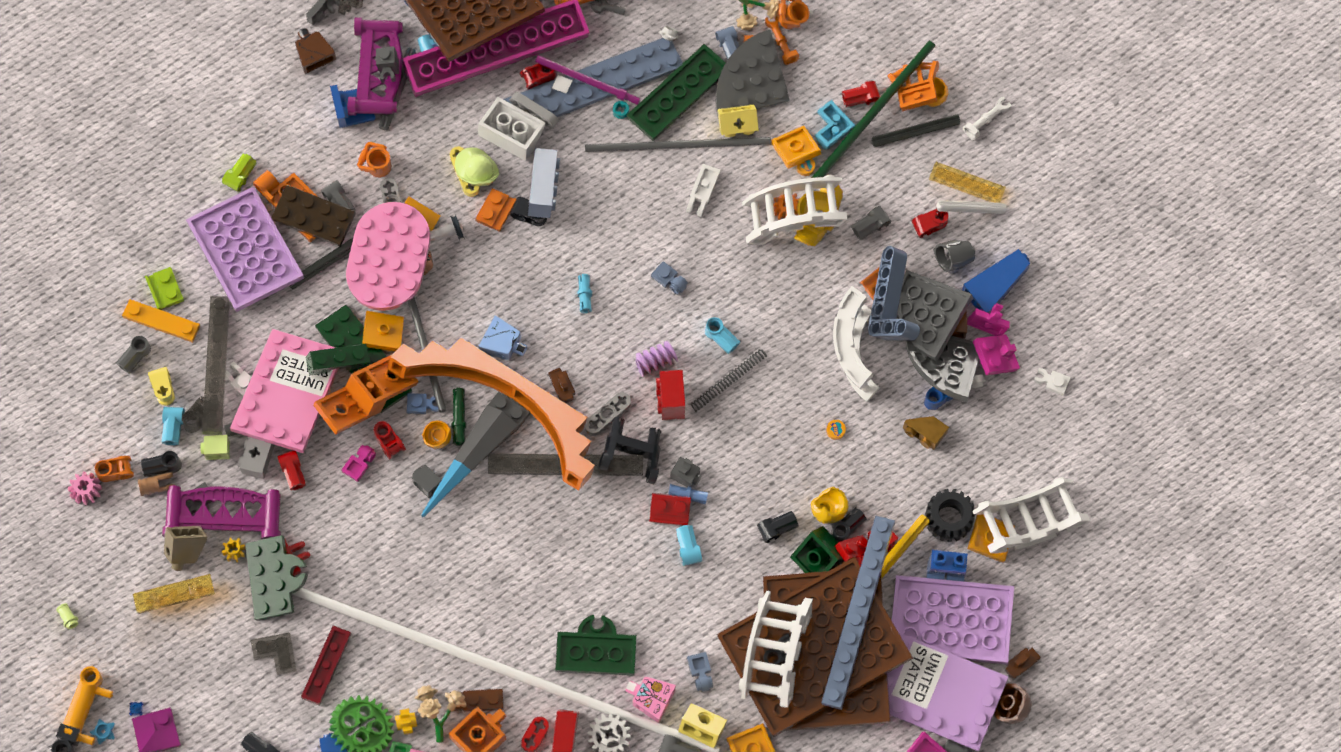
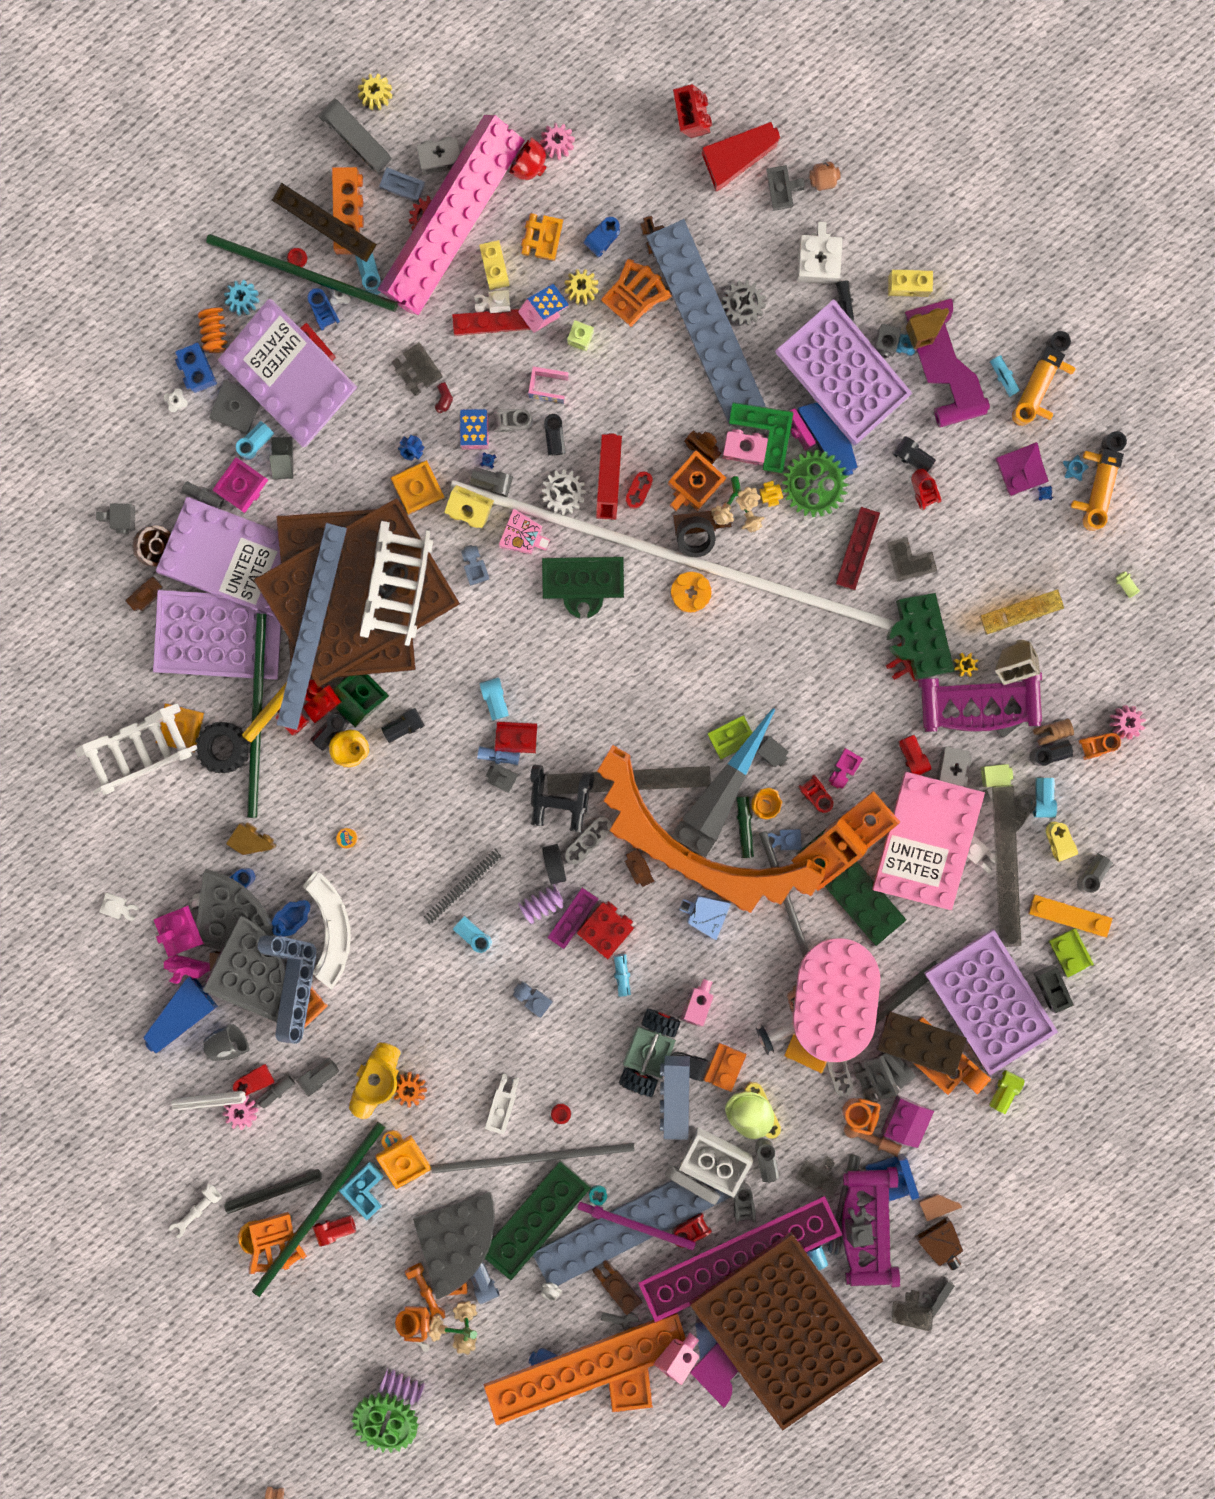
camera: 175 degrees right, 20 degrees up
(185, 255) = (1053, 989): none -> pearl dark grey brick
(254, 716) = (927, 491): none -> red piece
(313, 82) = (937, 1206): none -> nougat tile
(333, 153) = (907, 1122): none -> magenta slope
(342, 357) = (879, 874): dark green arch -> none
(354, 189) = (880, 1077): none -> dark grey plate
(356, 136) = (883, 1144): none -> nougat pin
(383, 331) = (833, 916): light orange plate -> none
(417, 112) = (819, 1178): none -> clear smoke plate
(464, 128) = (767, 1161): none -> dark grey piece
(465, 498) = (730, 737): none -> lime plate
(482, 640) = (697, 601): none -> light orange plate
(483, 693) = (695, 551): none -> black tyre
(488, 92) = (744, 1206): none -> dark grey piece
(519, 254) = (693, 1012): none -> bright pink torso
(562, 84) = (664, 1220): white sticker -> none
(565, 223) = (648, 1052): none -> plate
(597, 333) = (606, 929): none -> red brick
(608, 32) = (618, 1288): none -> reddish brown hinge
(627, 345) = (573, 918): none -> magenta plate
(641, 391) = (554, 864): none -> black tyre
(649, 179) = (561, 1113): none -> red plate
(670, 395) = (521, 861): red brick -> none
(729, 116) = (478, 1191): light yellow brick -> none
(791, 223) = (401, 1064): white fence -> none
(890, 360) = (290, 918): none -> blue arm
(910, 213) = (275, 1091): none -> dark grey axle
(916, 545) = (257, 702): none -> dark green piece
(943, 191) = (242, 1119): none -> bright pink gear
(947, 562) = (223, 688): blue hips -> none
(967, 183) = (215, 1132): clear yellow tile -> none
(1043, 736) = (120, 517): none -> dark grey brick

